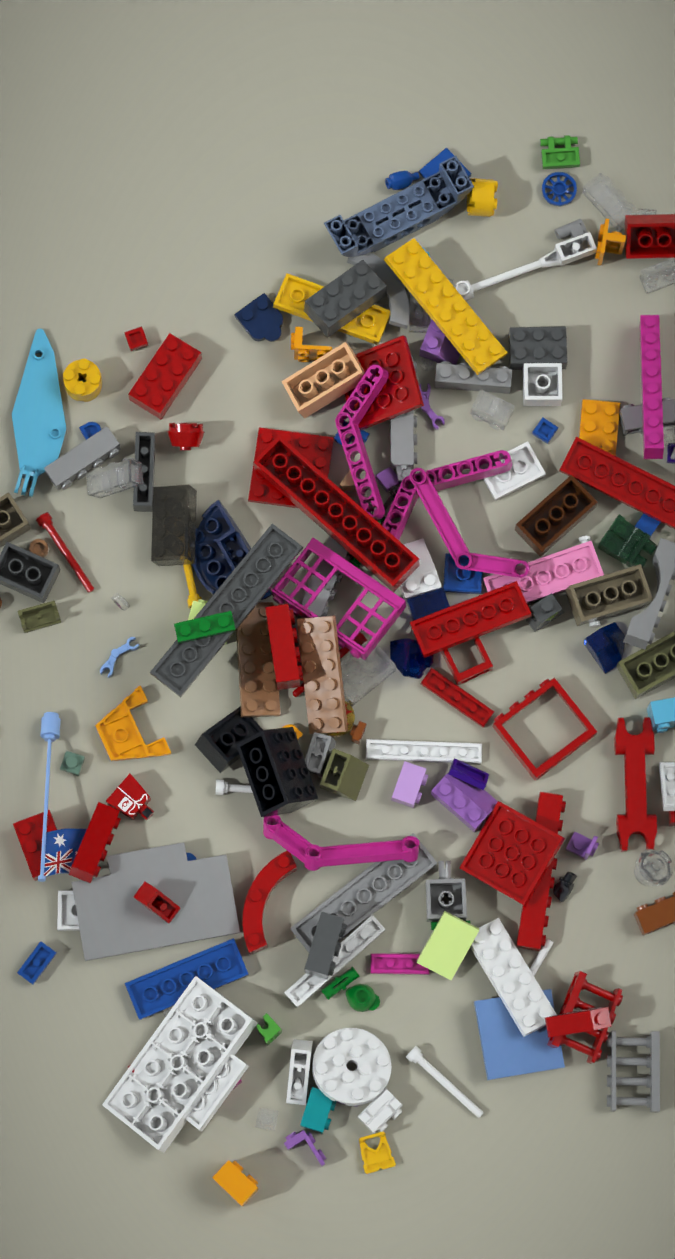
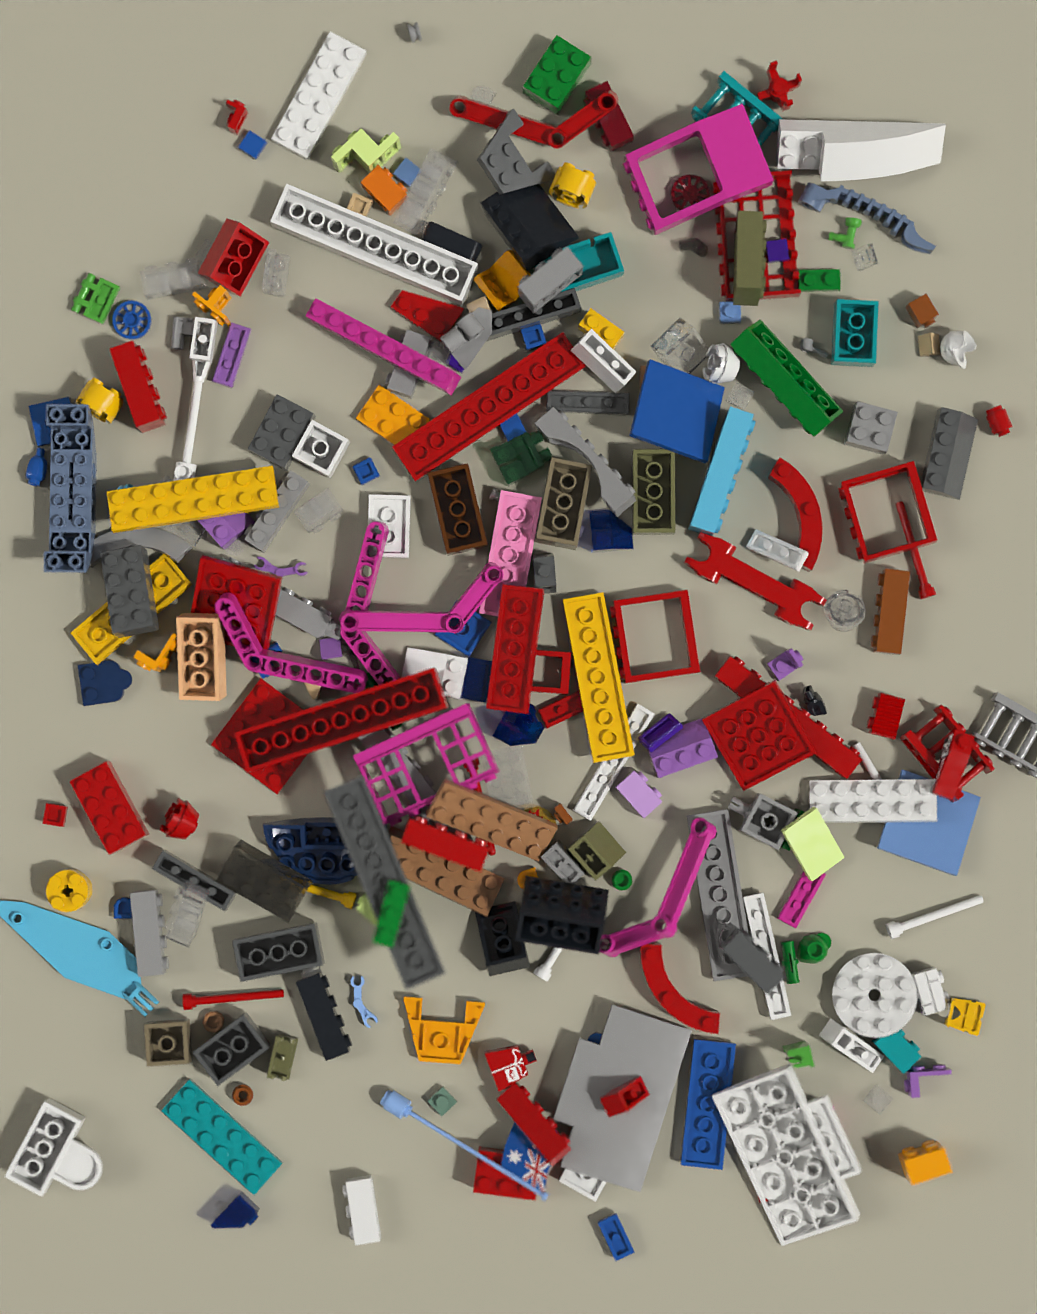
camera: 60 degrees left, 10 degrees up
(90, 631) = (323, 1016): none -> black brick
(123, 567) = (278, 952): none -> dark grey brick
(331, 809) = (622, 880): none -> green plate
(484, 700) = (598, 677): none -> yellow plate
(510, 219) = (137, 386): none -> red brick
(576, 278) = (231, 355): none -> medium lavender tile
(586, 951) = (885, 716): none -> red brick

